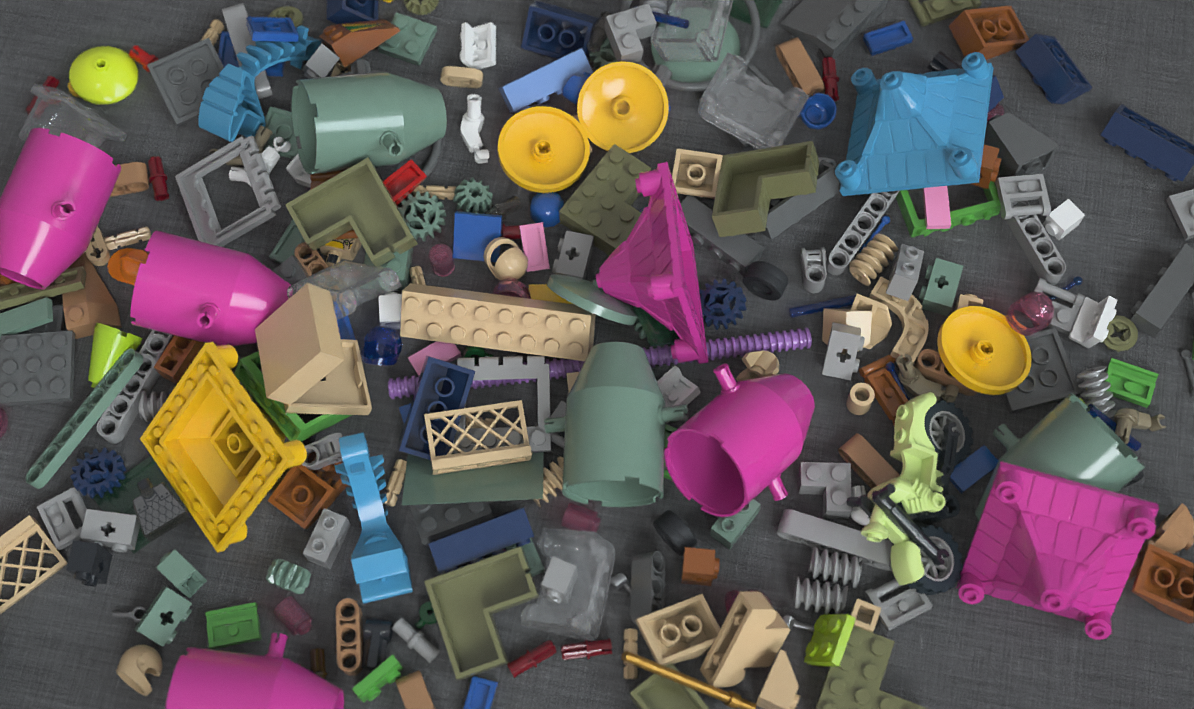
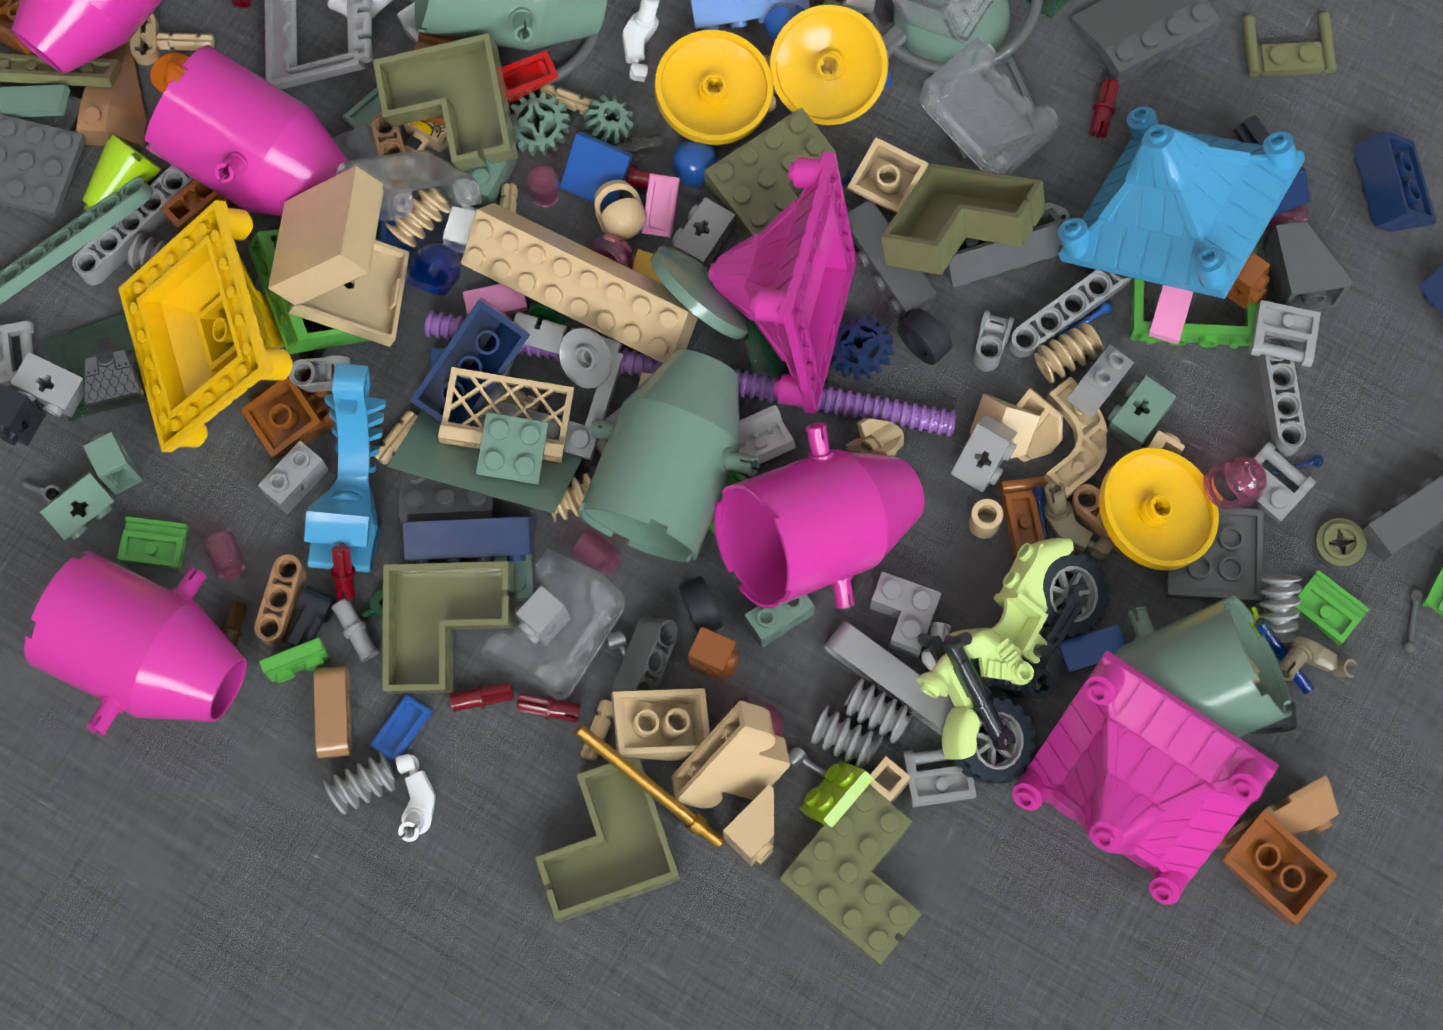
camera: 20 degrees right, 5 degrees up
(98, 473) = (59, 313): dark blue gear -> none
(137, 662) = (31, 549): tan helmet -> none
(288, 576) = (233, 506): sand green gear -> none
(350, 322) = (420, 216): none -> tan piece
(393, 597) = (343, 572): none -> dark red axle
(493, 460) = (512, 448): none -> sand green plate
(517, 381) = (576, 360): none -> light grey dish
(799, 67) = (1071, 82): medium nougat beam -> none
(818, 307) = (979, 389): clear blue bar -> none
(819, 111) = (1072, 144): blue hair -> none
(866, 461) = (965, 596): medium nougat beam -> none
(887, 38) = (1199, 77): blue tile -> none
(988, 31) = (1329, 109): dark orange slope -> none
(1063, 219) = (1328, 378): white brick -> none
(1092, 321) = (1311, 516): white bracket -> none

